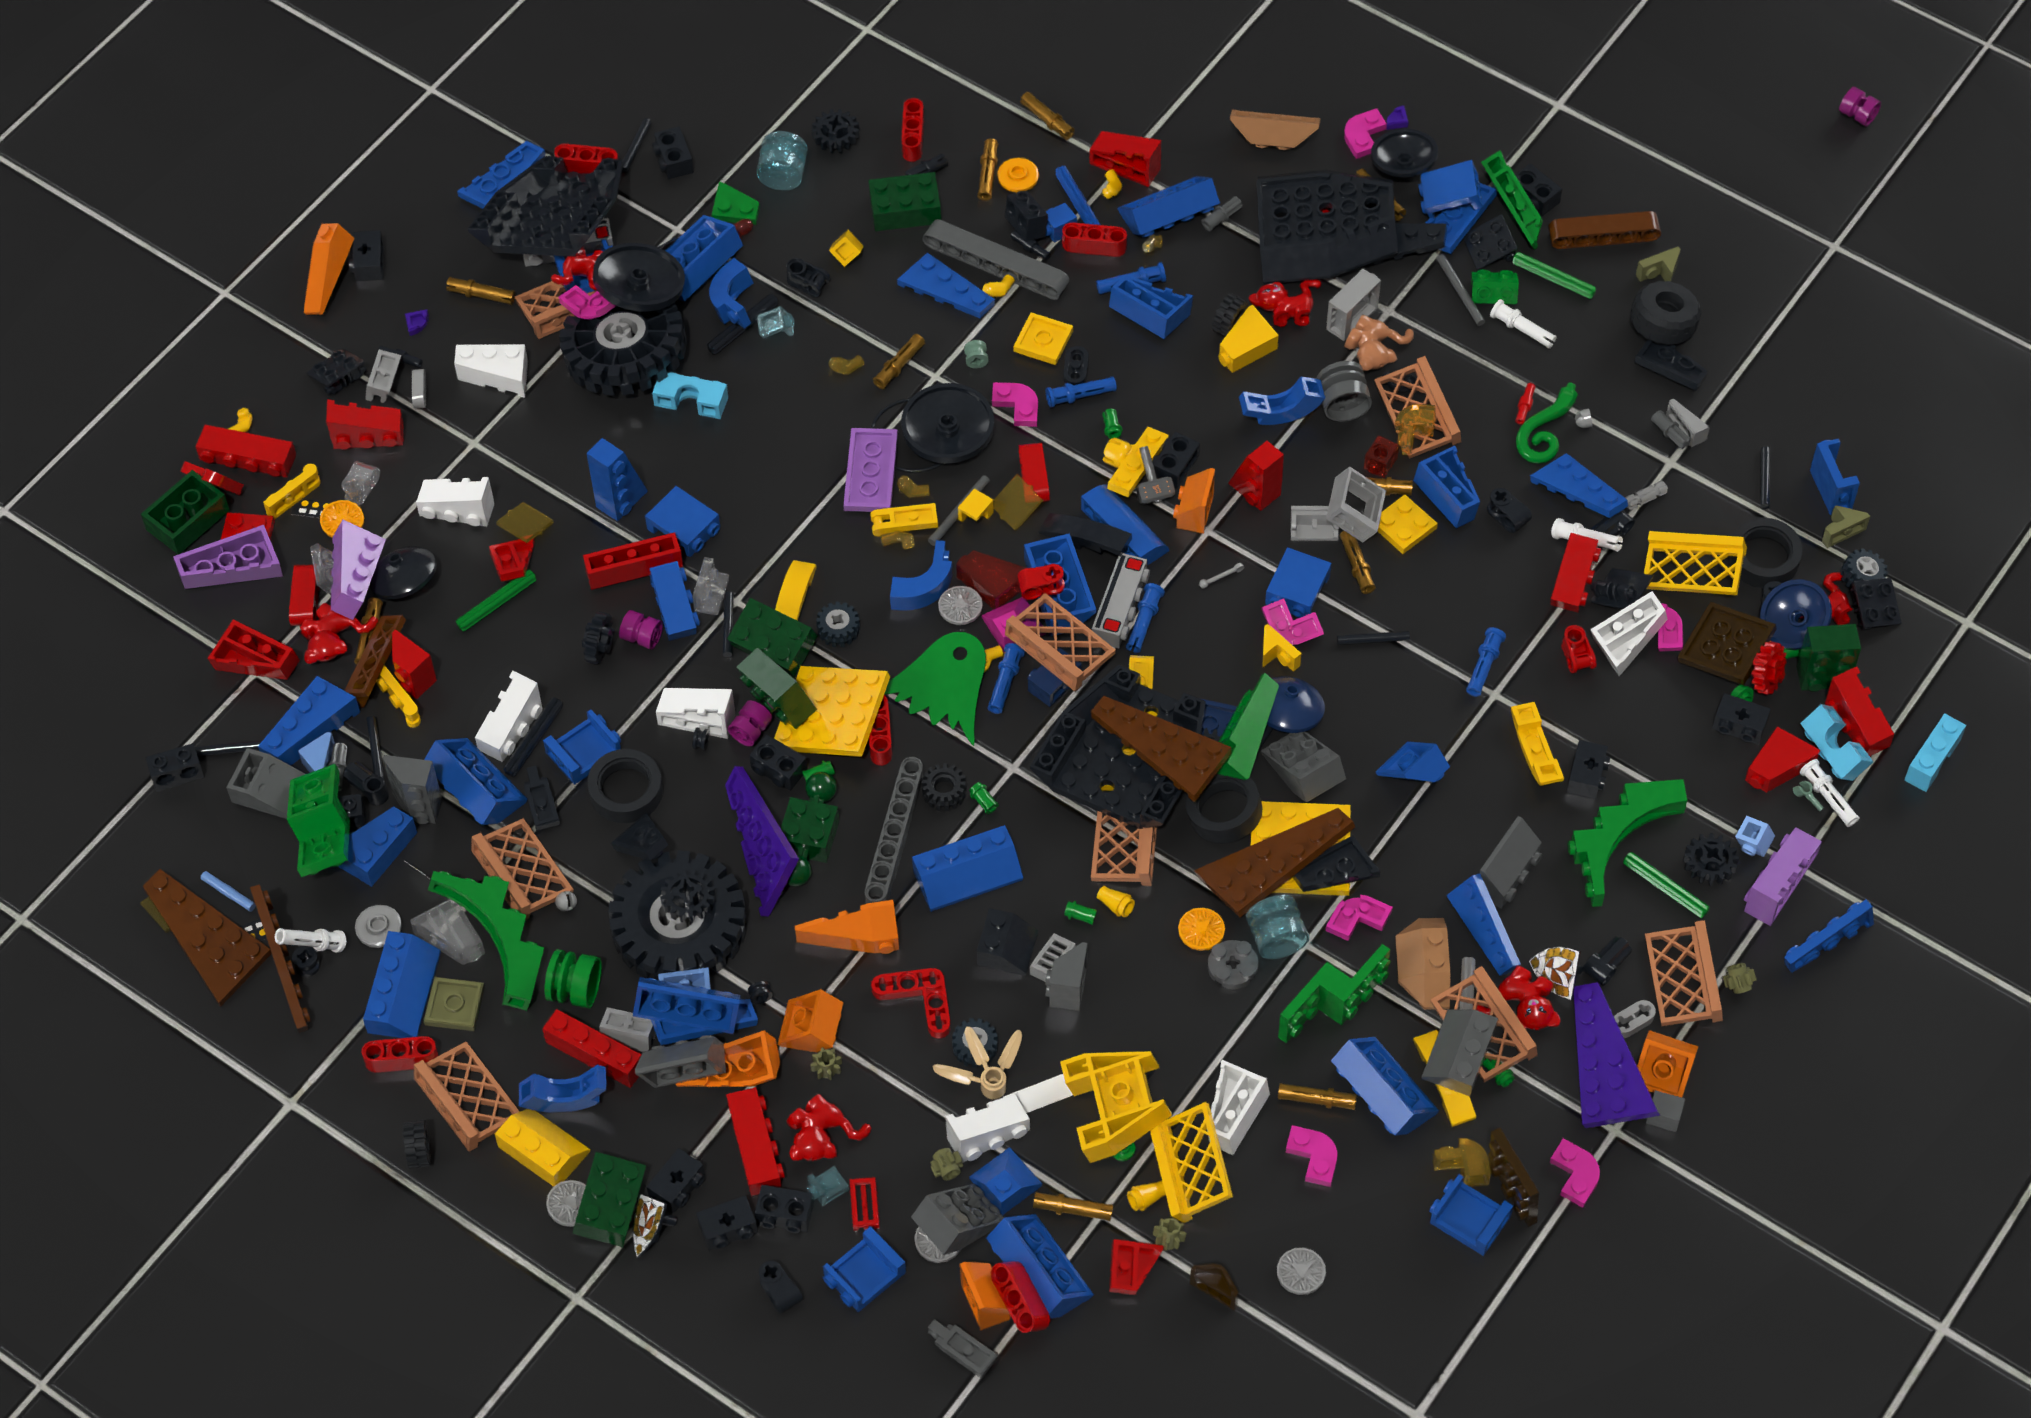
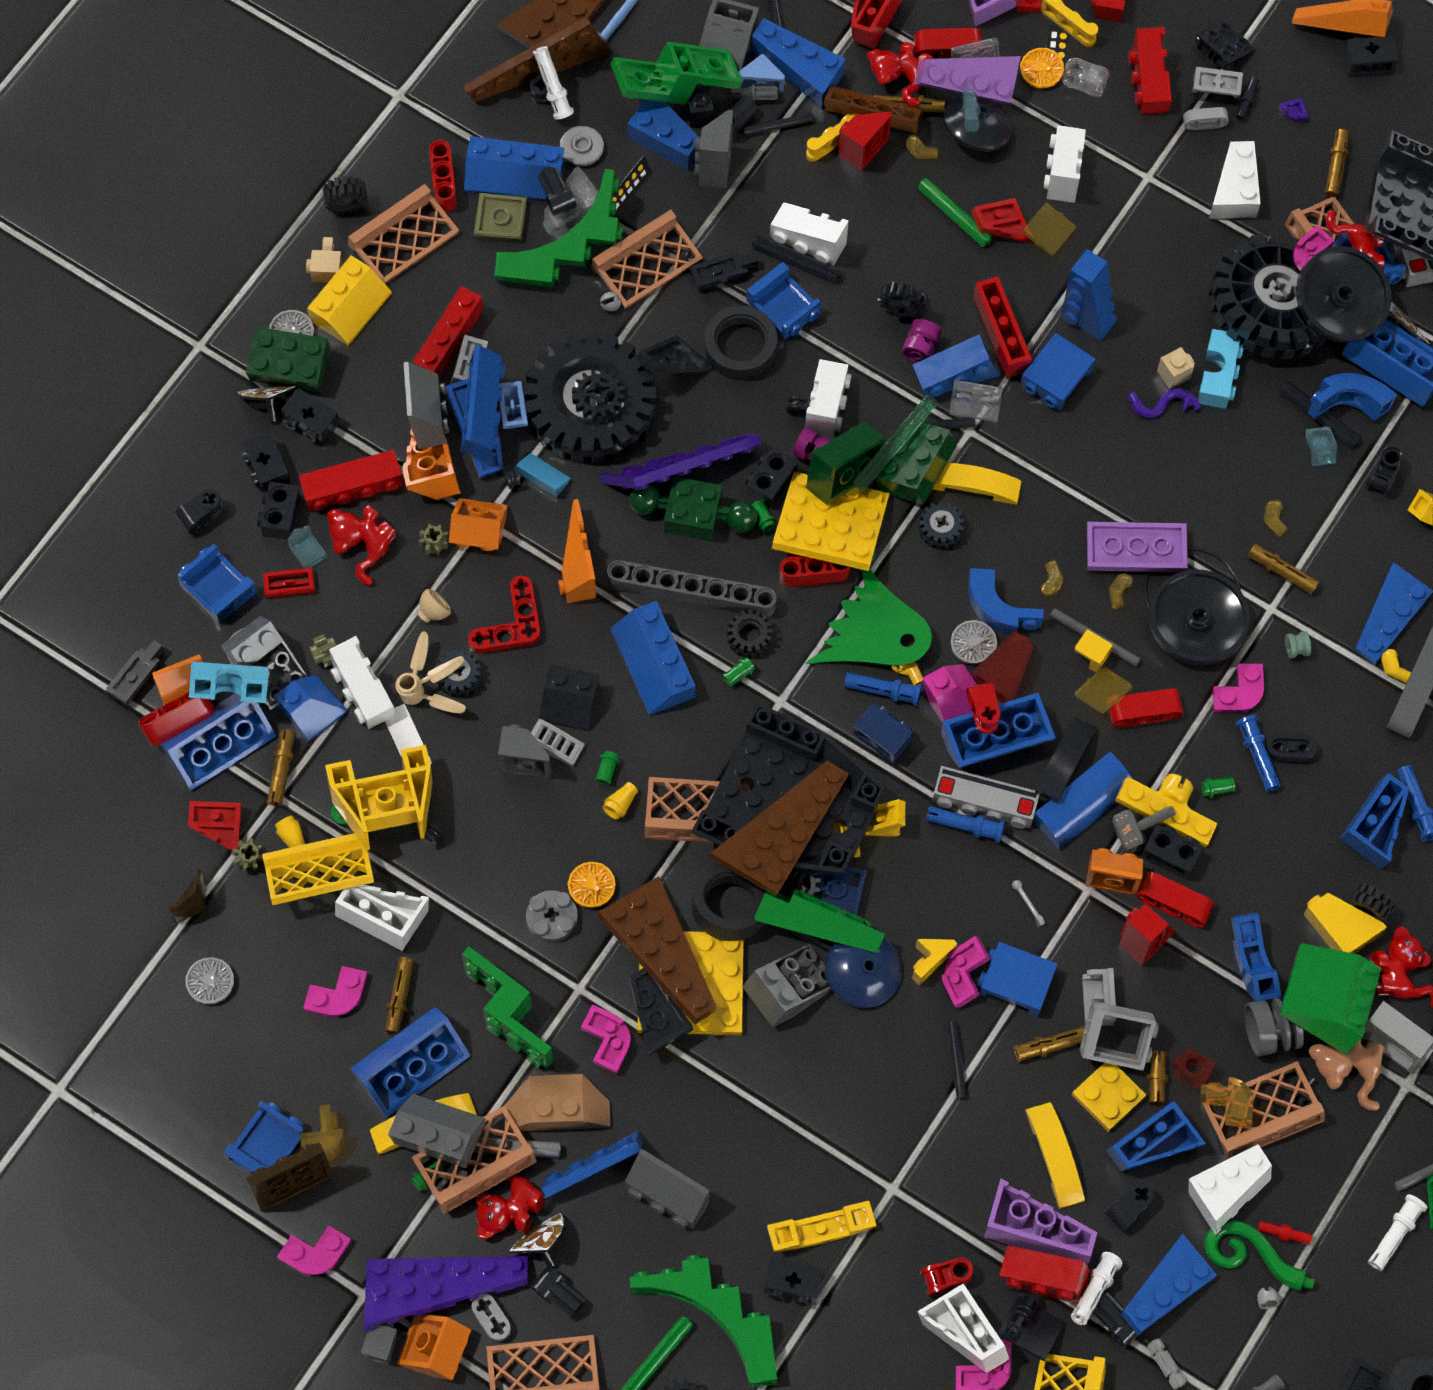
camera: 85 degrees right, 10 degrees up
(397, 564) = (970, 110): none -> clear light blue pin
(421, 626) = (919, 150): none -> clear yellow arm
(449, 933) = (557, 195): none -> black piece
(474, 780) = (741, 209): blue slope -> none
(495, 1167) = (324, 262): none -> tan brick
(563, 1095) = (400, 309): blue arch -> none
(573, 978) = (517, 309): green wheel -> none
(688, 427) = (1176, 368): none -> tan brick
(725, 461) = (1140, 409): none -> dark purple animal
(757, 641) = (894, 443): none -> clear green axle
(758, 965) = (542, 474): none -> dark azure slope
(902, 1064) = (433, 606): none -> tan brick
(904, 518) = (1077, 584): yellow plate -> none
(991, 1217) = (244, 680): none -> medium azure arch
(1042, 650) = (899, 713): nougat fence -> none
(1043, 338) = (1326, 713): yellow plate -> none
(1224, 457) = (1175, 899): none -> red beam
(1277, 926) = (584, 952): clear light blue wheel -> none
(1321, 339) = (1330, 994): none -> green slope
(1416, 762) = (790, 1096): blue slope -> none
(1458, 563) = (1056, 1154): none -> yellow slope
(1488, 652) = (939, 1179): blue pin -> none
(1491, 435) = (1229, 1186): none -> white wedge
(1529, 583) = (1035, 1226): none -> medium lavender wedge

